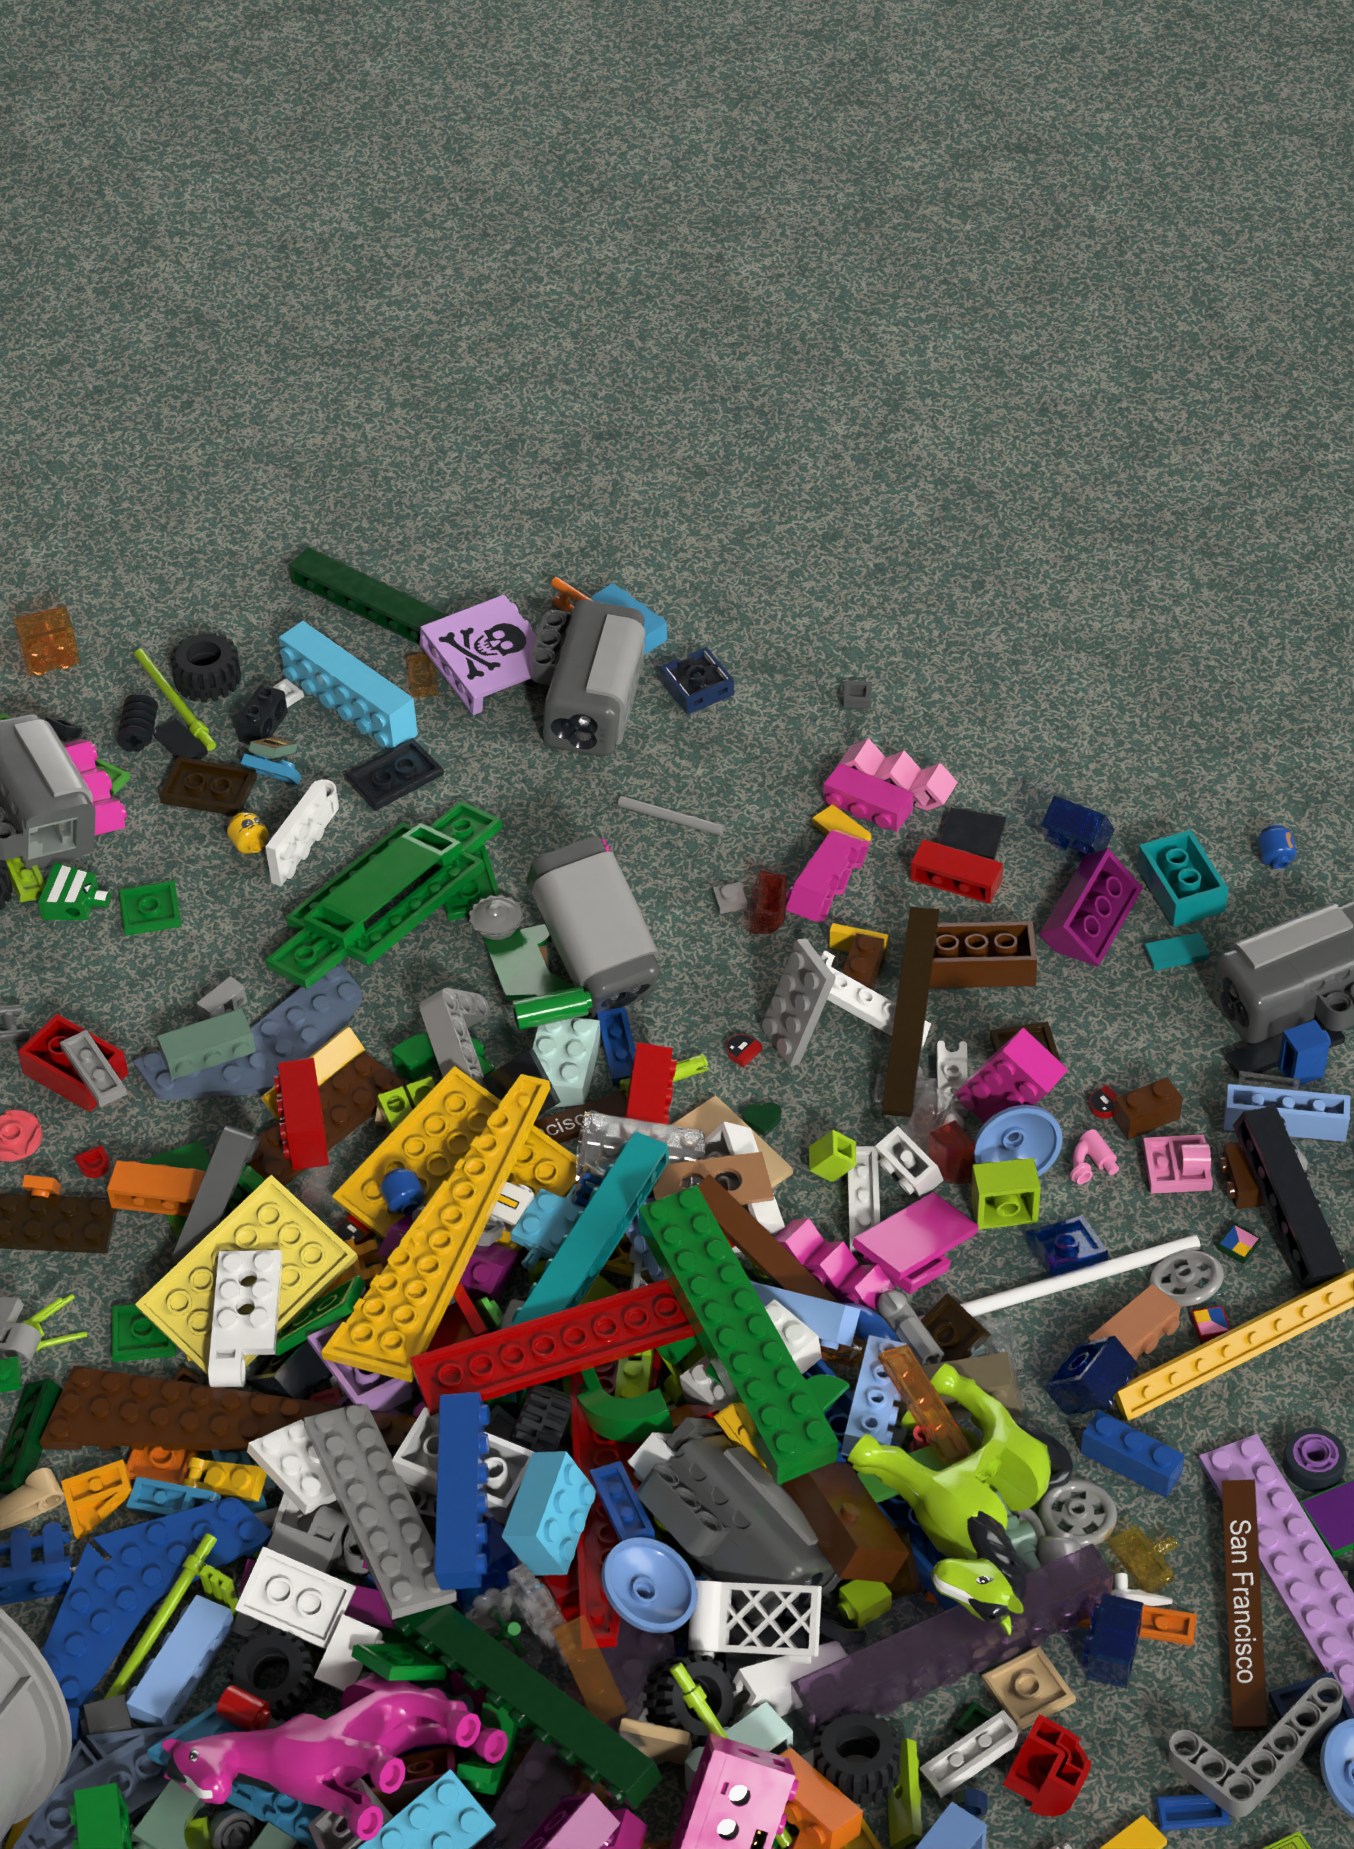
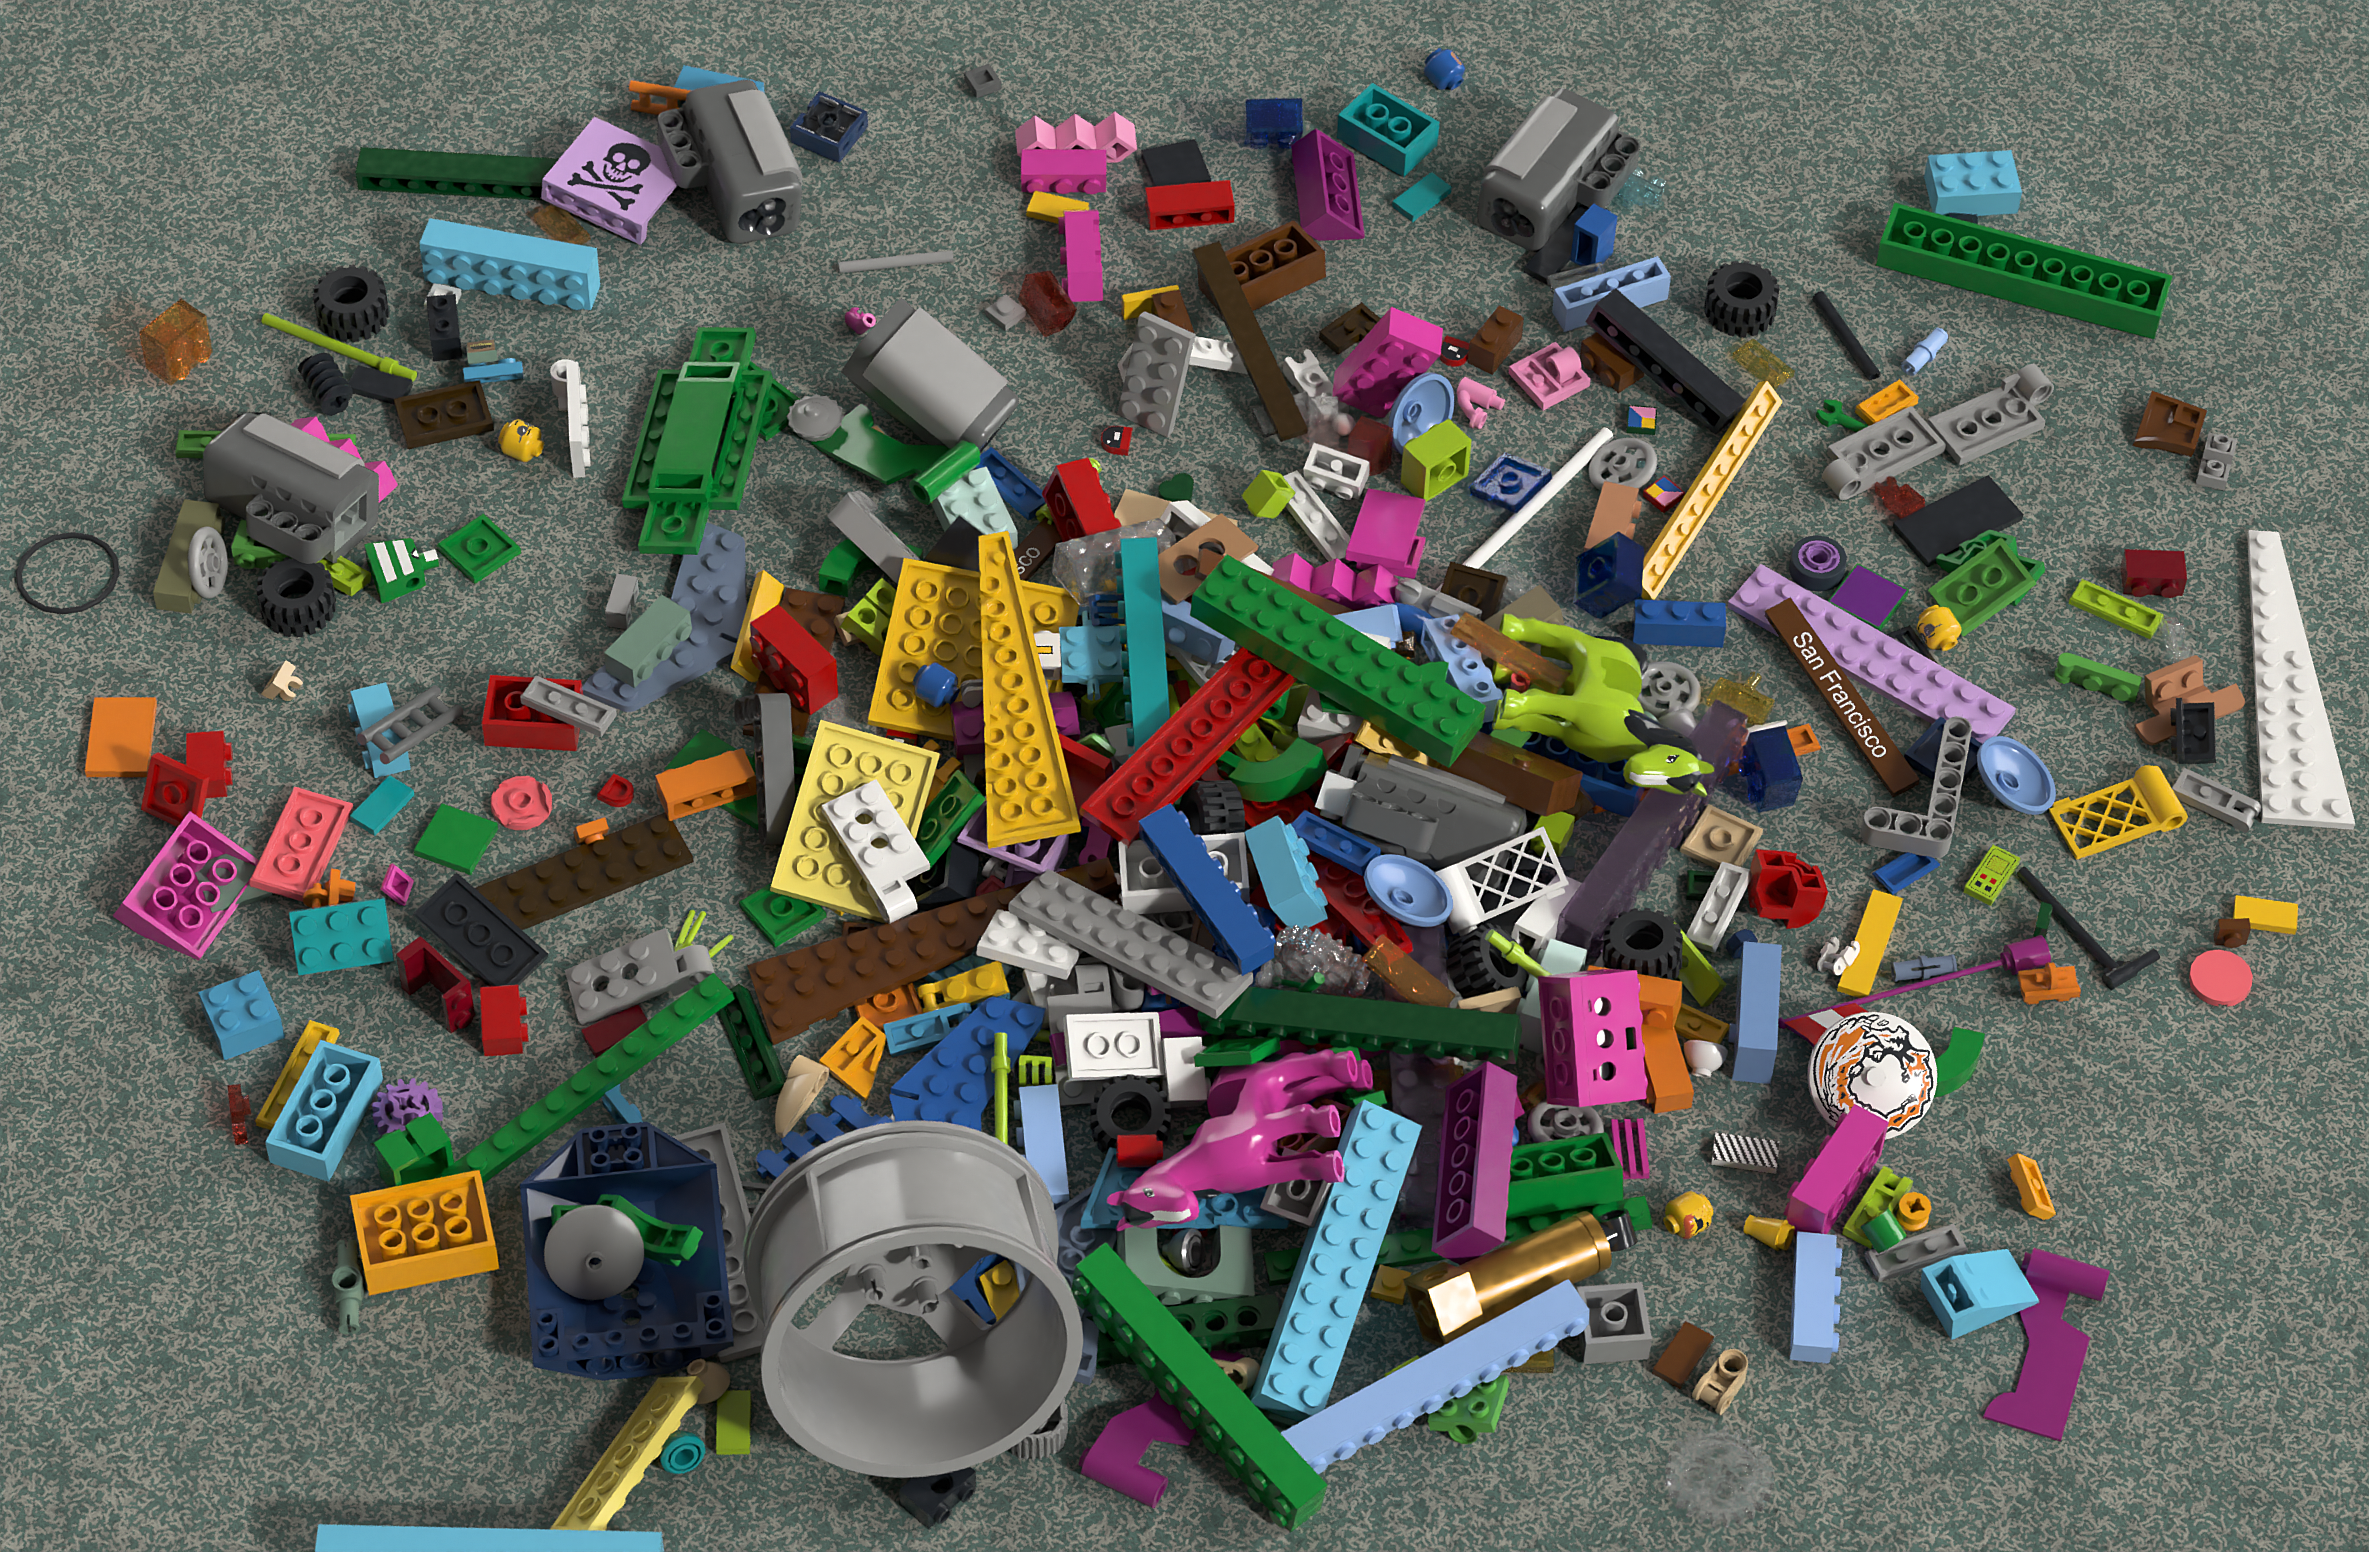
camera: 35 degrees left, 5 degrees up
(394, 774) = (609, 330): black tile -> none

